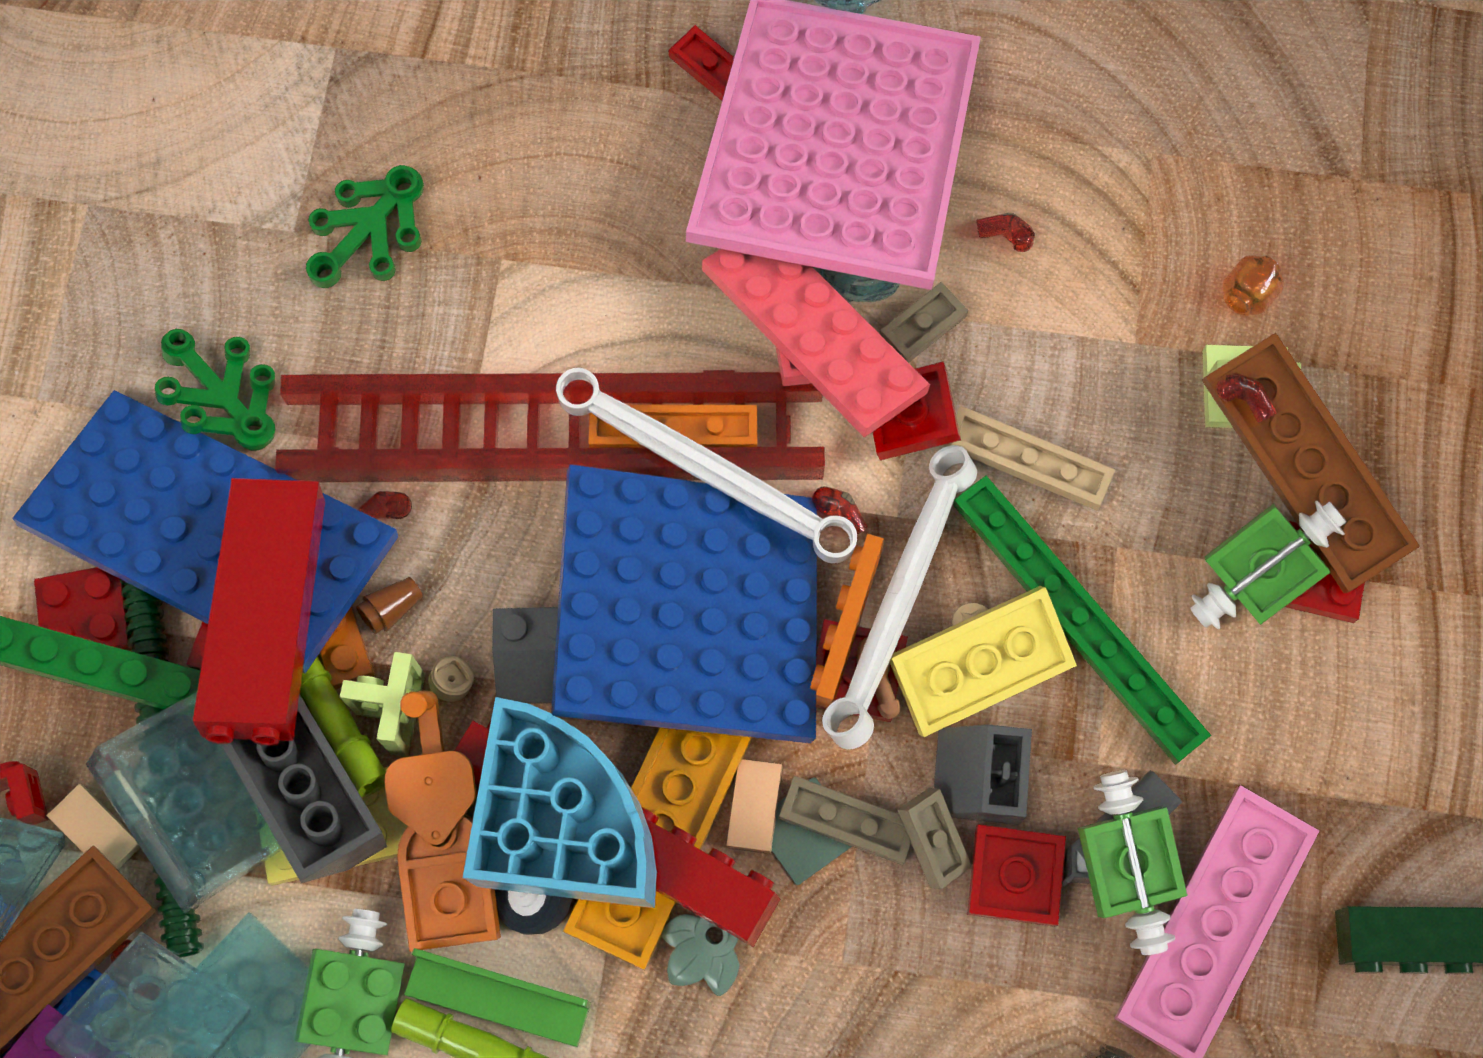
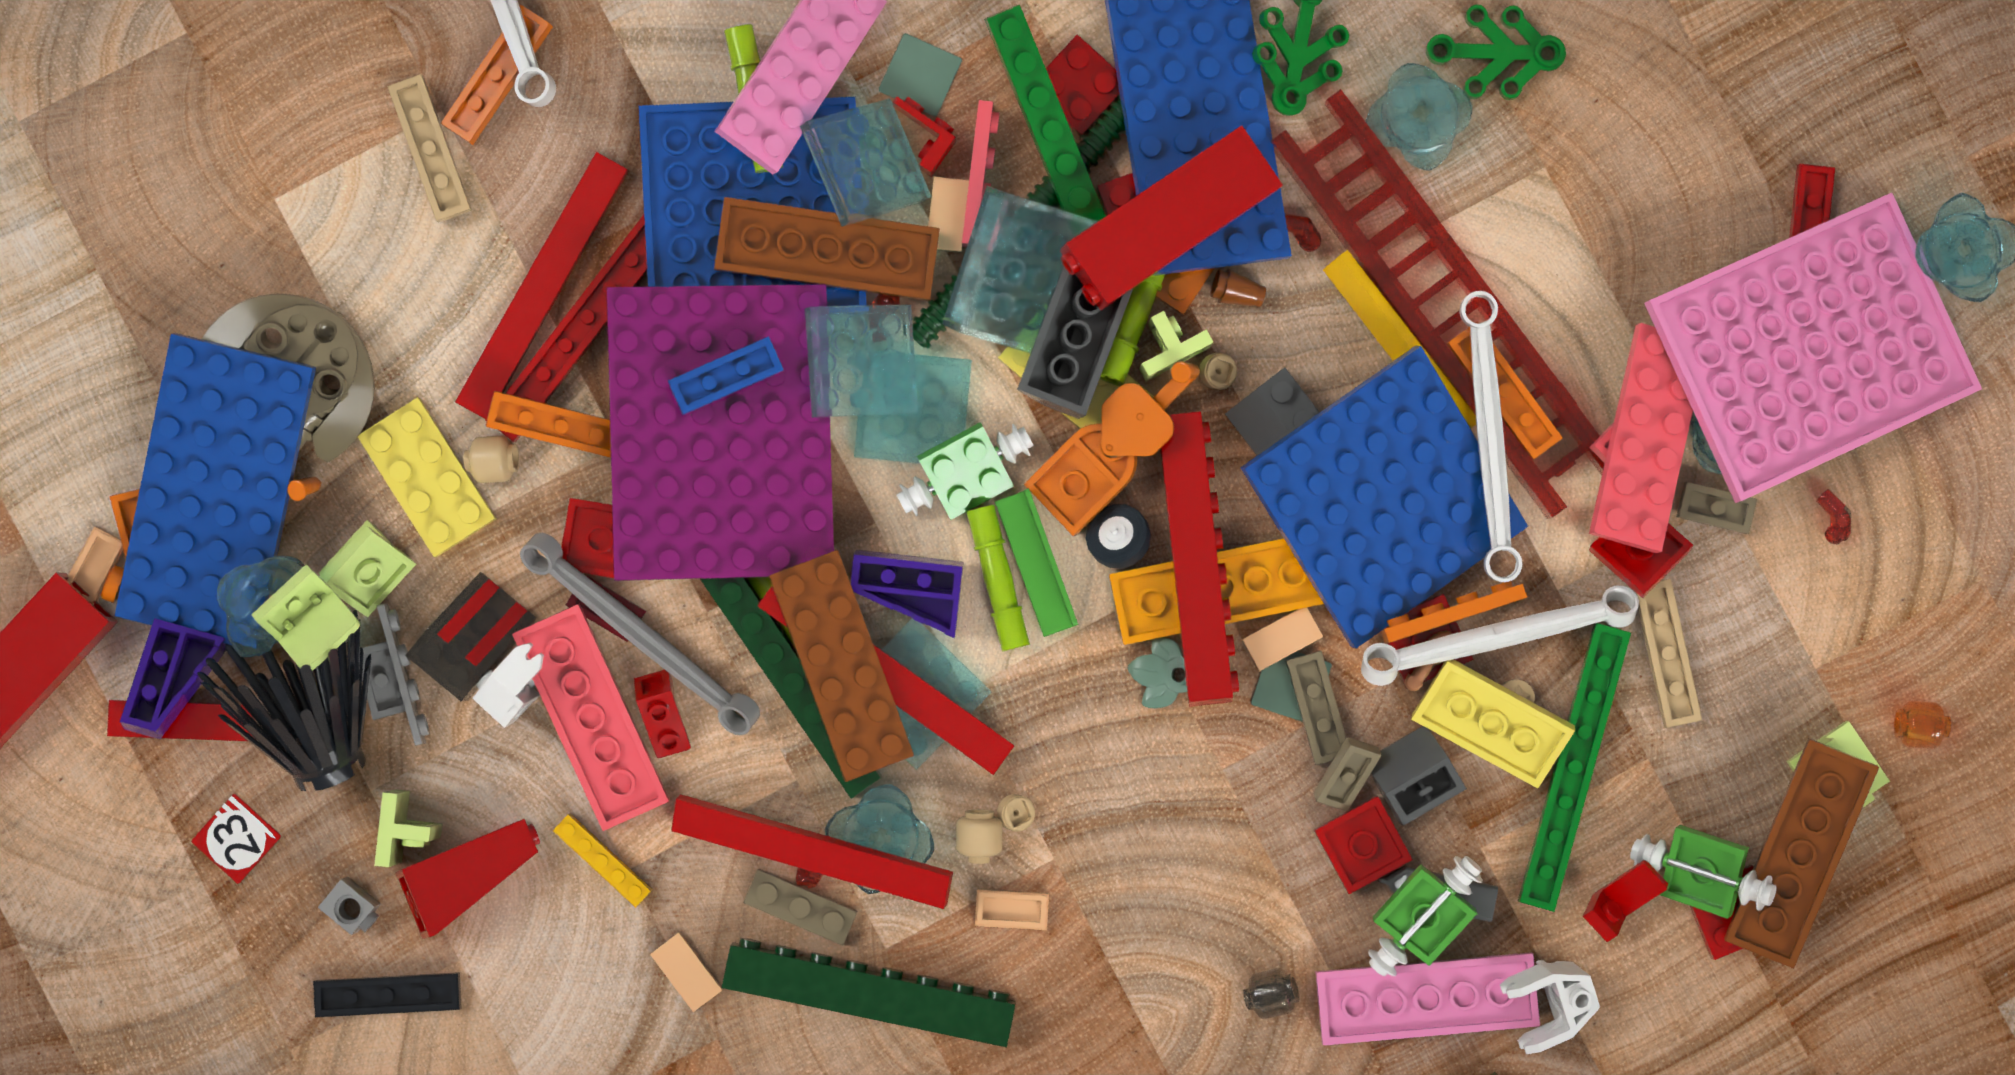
camera: 55 degrees right, 15 degrees up
(66, 753) = (982, 159): none -> coral plate
(390, 340) = (1421, 143): none -> clear light blue brick
(509, 491) = (1382, 318): none -> yellow tile
(556, 815) = (1179, 520): medium azure brick -> none
(838, 503) = (1534, 545): clear red arm -> none
(1239, 659) = (1622, 897): none -> red bracket
(1248, 390) = (1818, 775): clear red arm -> none
(1312, 782) = (1569, 997): none -> white piece

